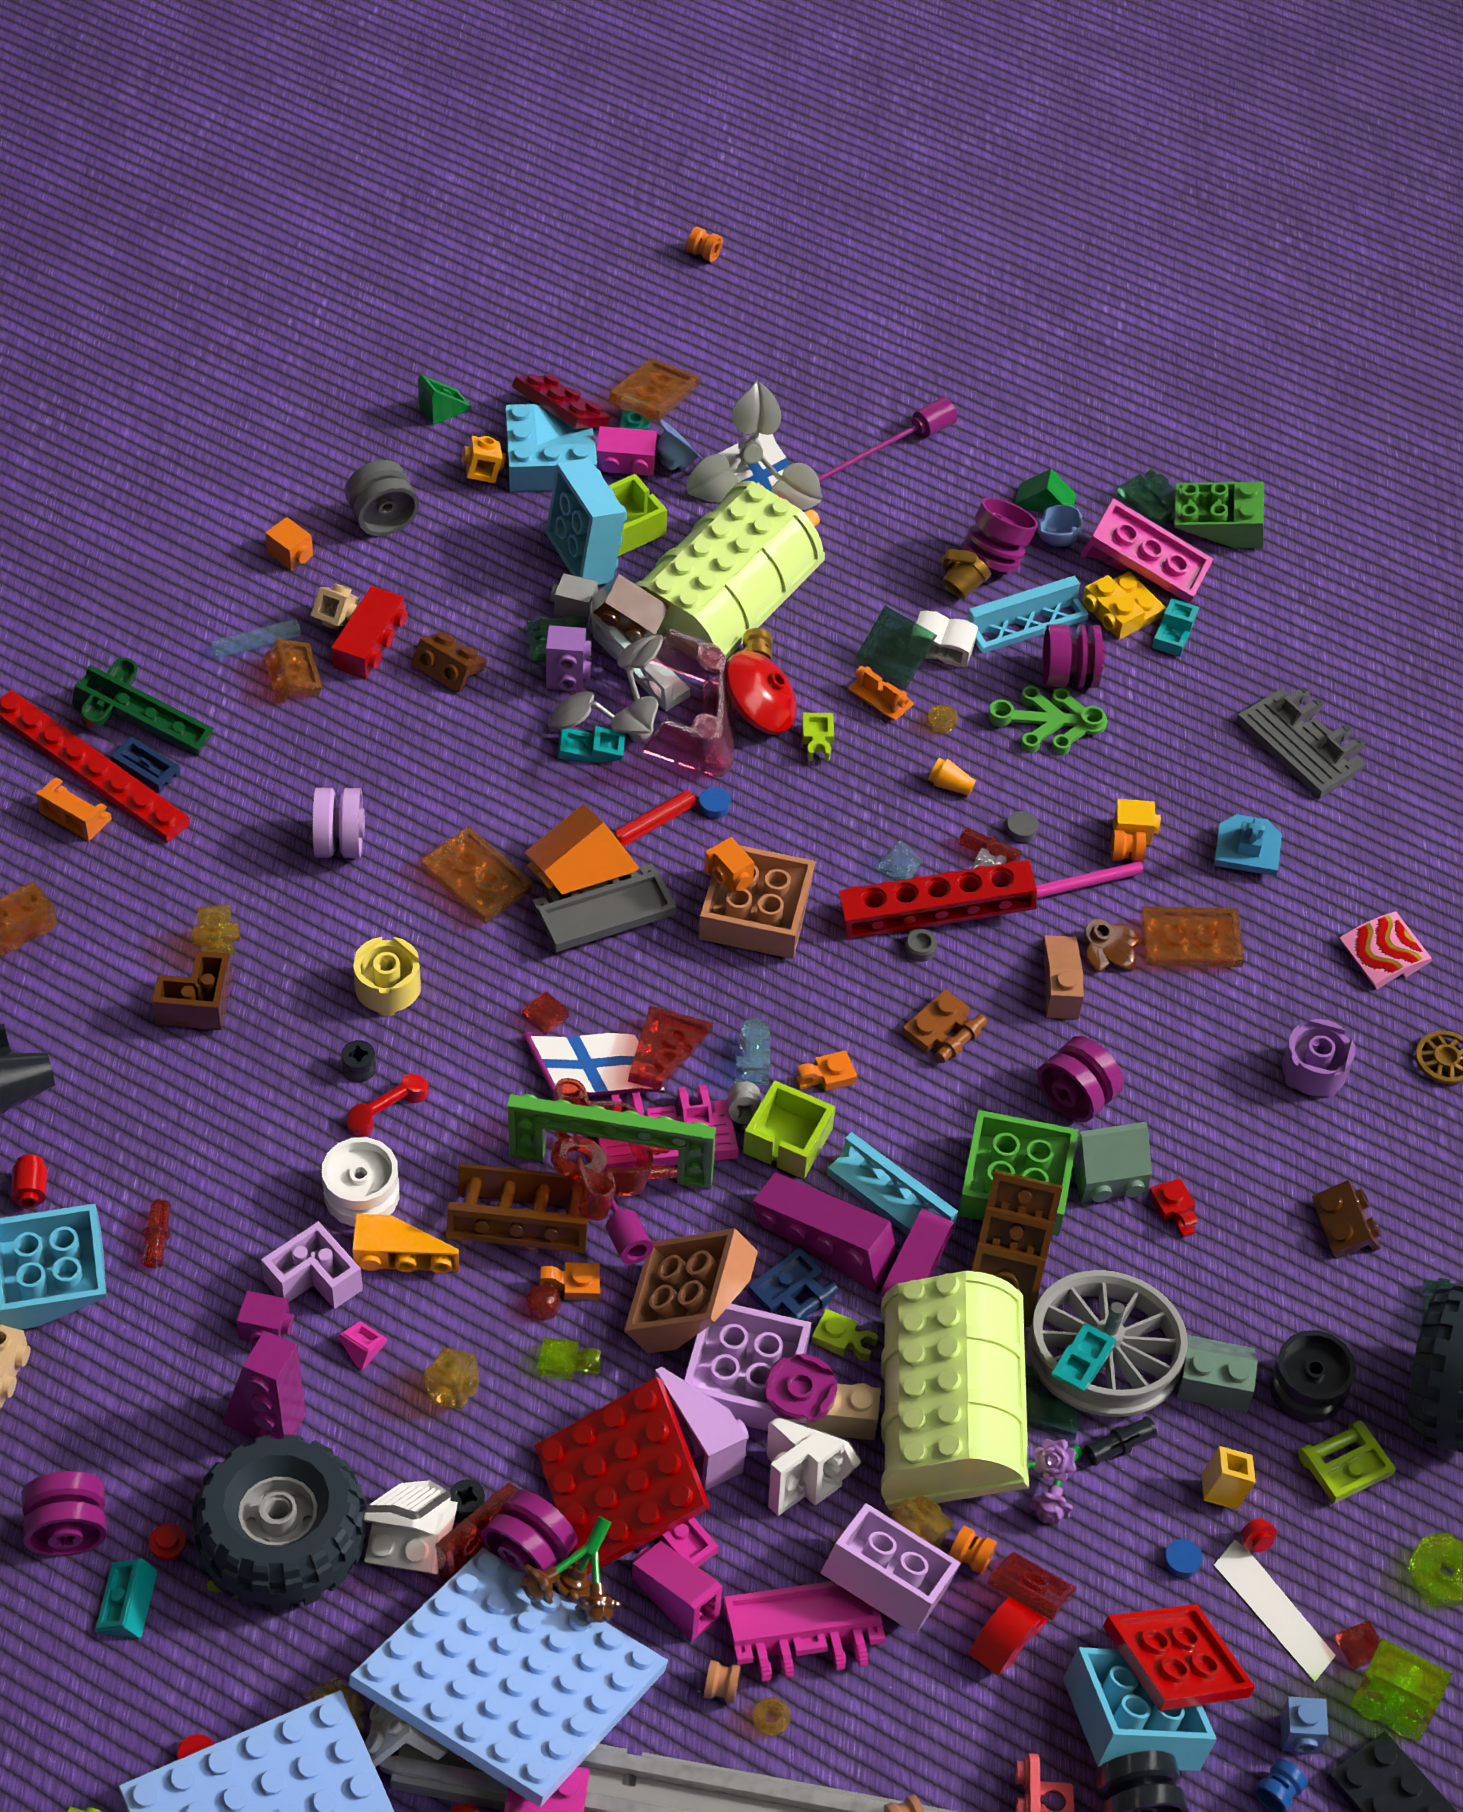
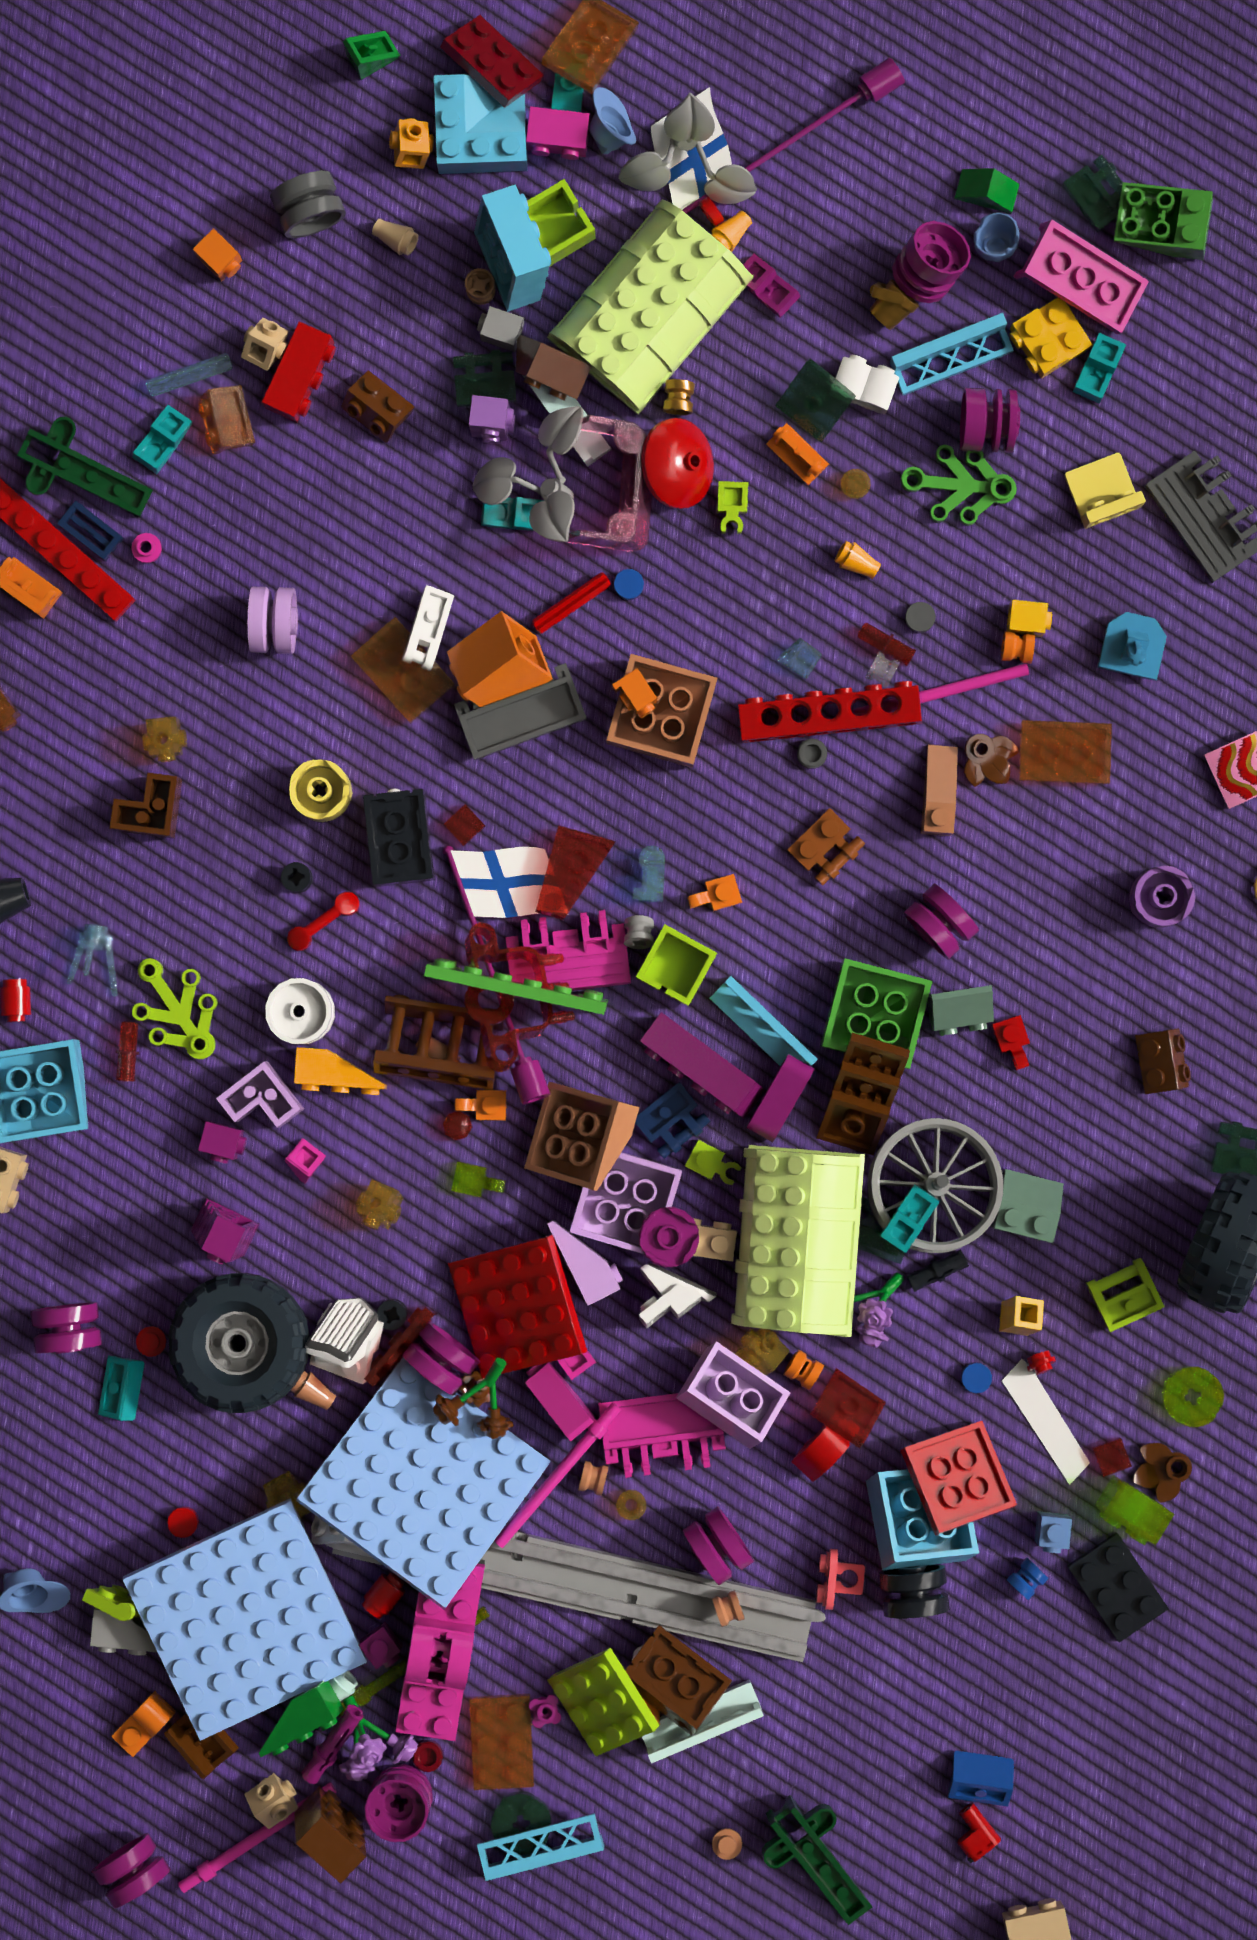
camera: 10 degrees right, 35 degrees up
(125, 1124) = (94, 939): none -> clear light blue plant
(204, 783) = (150, 556): none -> dark pink plate
(217, 1194) = (179, 1012): none -> lime plant
(227, 689) = (162, 439): none -> teal slope
(366, 1590) = (312, 1390): none -> nougat cone
(470, 531) = (396, 236): none -> tan cone
(474, 1016) = (398, 837): none -> black piece
(504, 832) = (428, 627): none -> white plate
(552, 565) = (477, 281): none -> medium nougat wheel
(721, 1620) = (595, 1430): none -> dark pink bar
(841, 571) = (769, 287): none -> magenta slope
(887, 1745) = (720, 1544): none -> magenta wheel
(1198, 720) = (1103, 490): none -> light yellow bracket
(1312, 1376) = (1089, 1217): black wheel -> none
(1425, 1644) = (1157, 1470): none -> reddish brown plate

